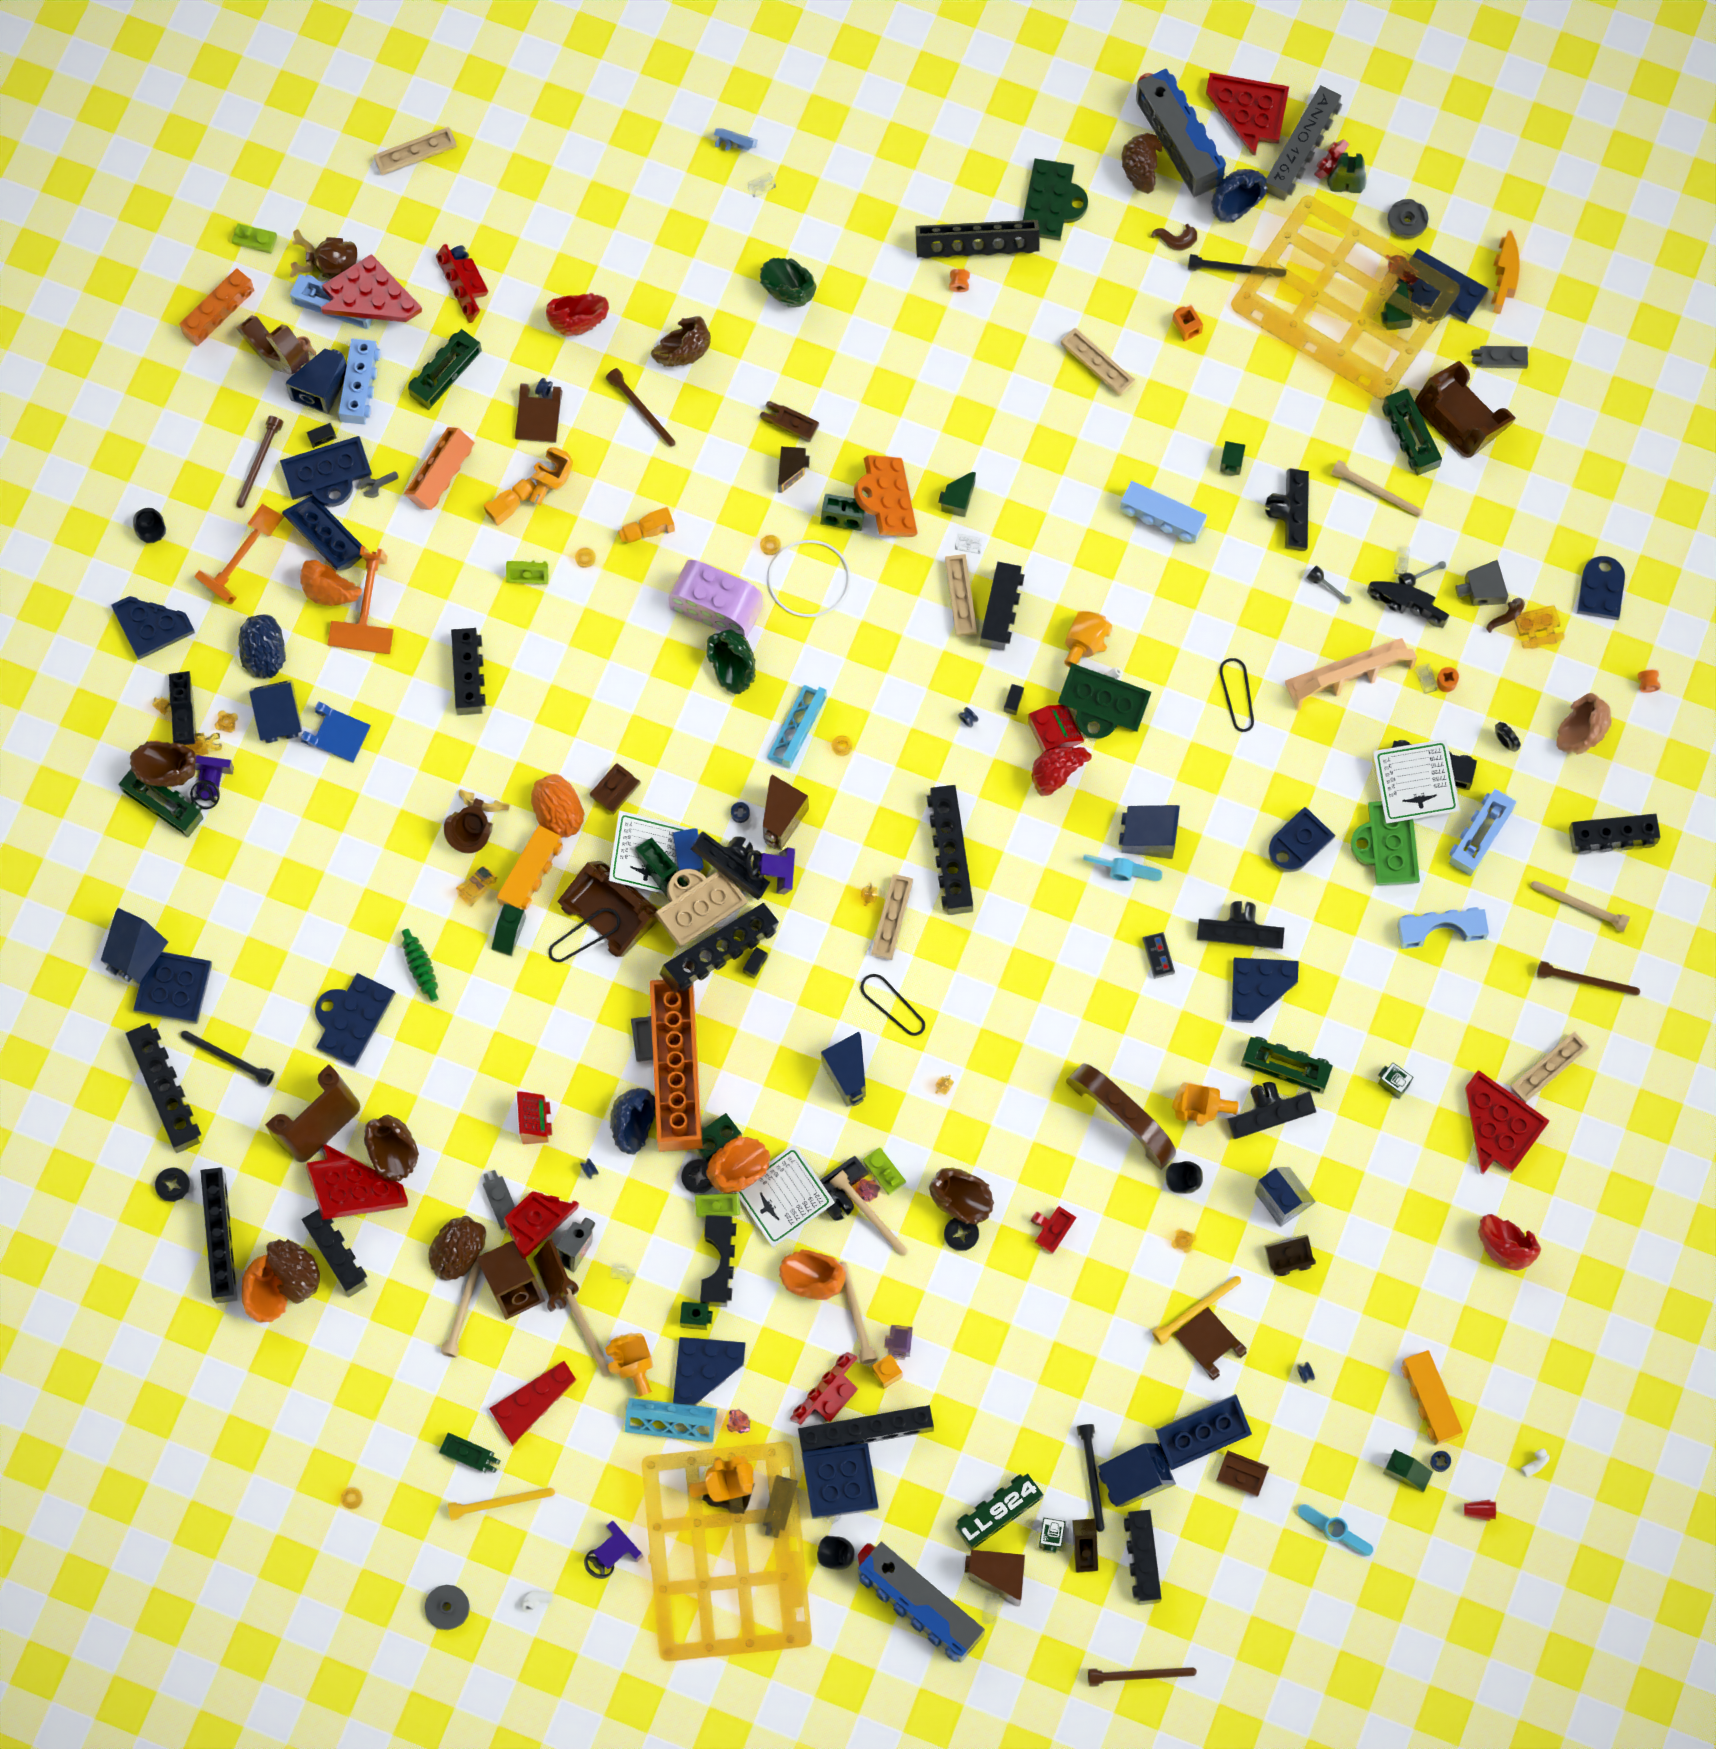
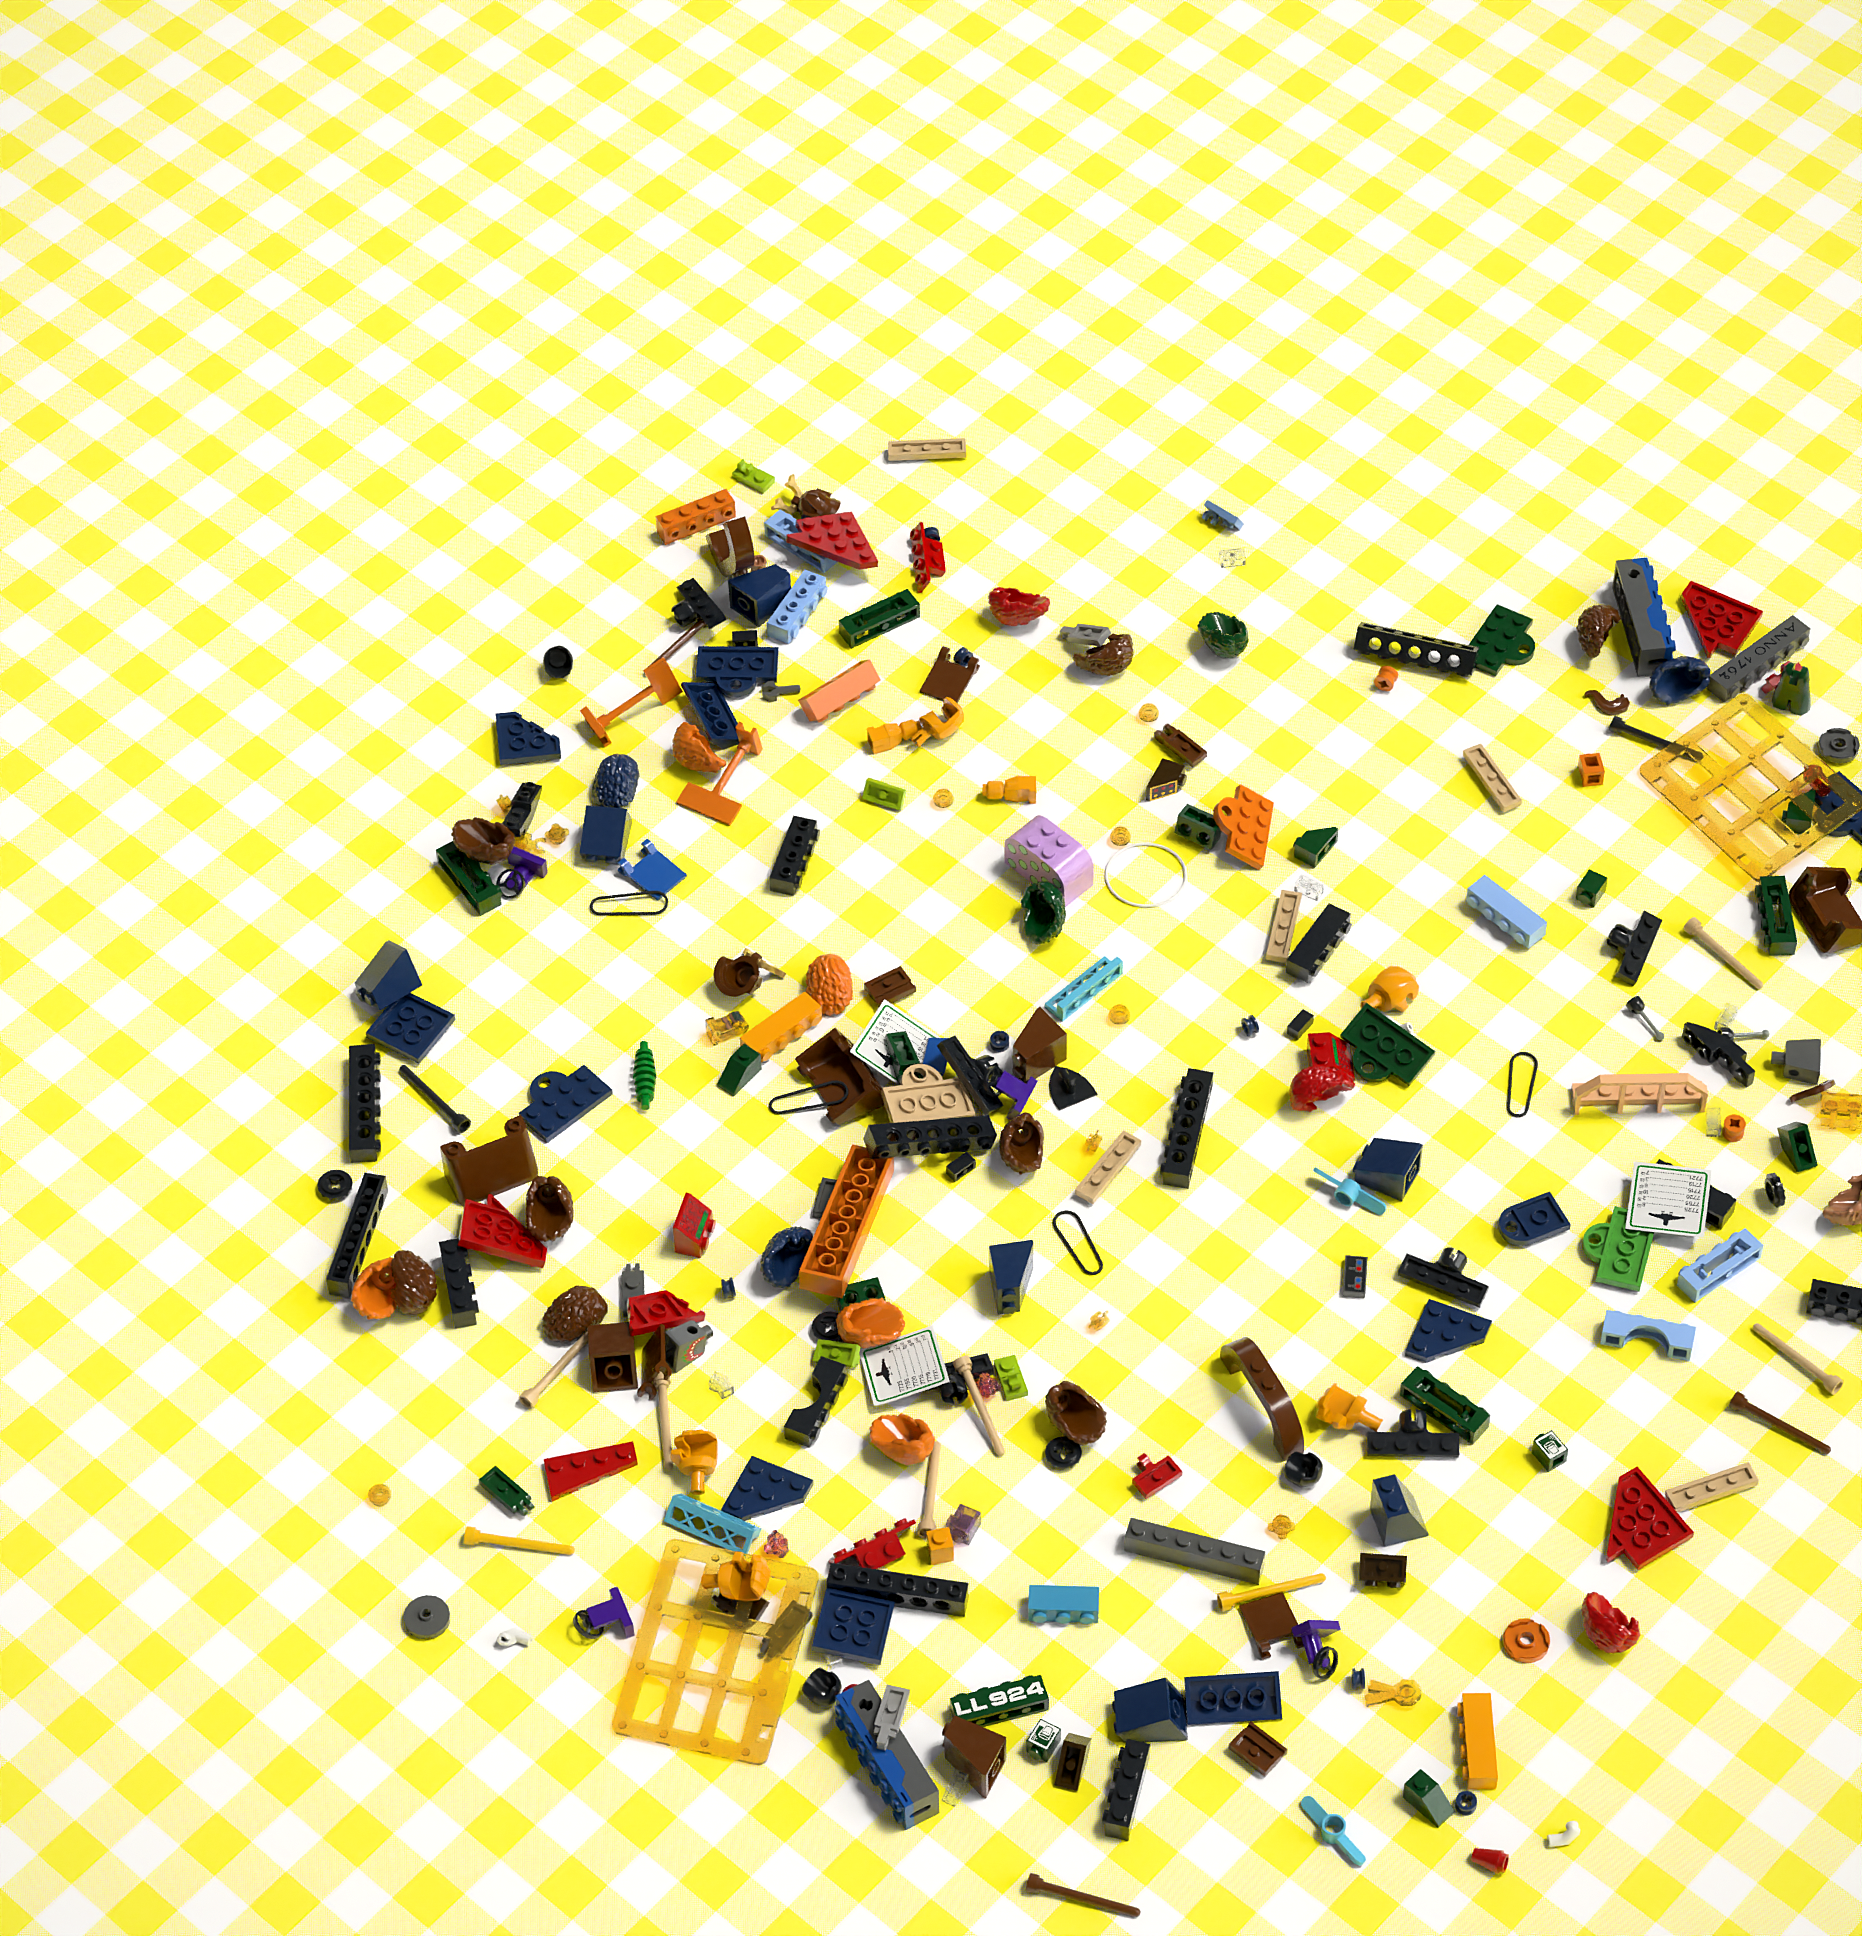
camera: 20 degrees right, 20 degrees down
(261, 414) = (696, 605): none -> black plate
(324, 767) = (626, 895): none -> black piece
(615, 378) = (1033, 669): reddish brown piece -> none
(655, 326) = (1086, 634): none -> light grey hinge
(695, 1315) = (774, 1441): dark green brick -> none
(746, 388) = (1148, 712): none -> clear yellow plate
(806, 924) = (1023, 1148): none -> reddish brown hair
(823, 840) = (1069, 1088): none -> black shield
(916, 1572) = (890, 1714): none -> light grey hinge
(1019, 1391) = (1063, 1604): none -> dark azure brick
(1086, 1434) = (1114, 1662): black piece -> none
(1117, 1295) = (1194, 1551): none -> dark grey brick
(1256, 1355) = (1311, 1634): none -> dark purple piece
(1351, 1371) = (1404, 1693): none -> clear yellow piece
(1435, 1292) = (1526, 1652): none -> orange tile
(1511, 679) = (1798, 1145): none -> dark green slope

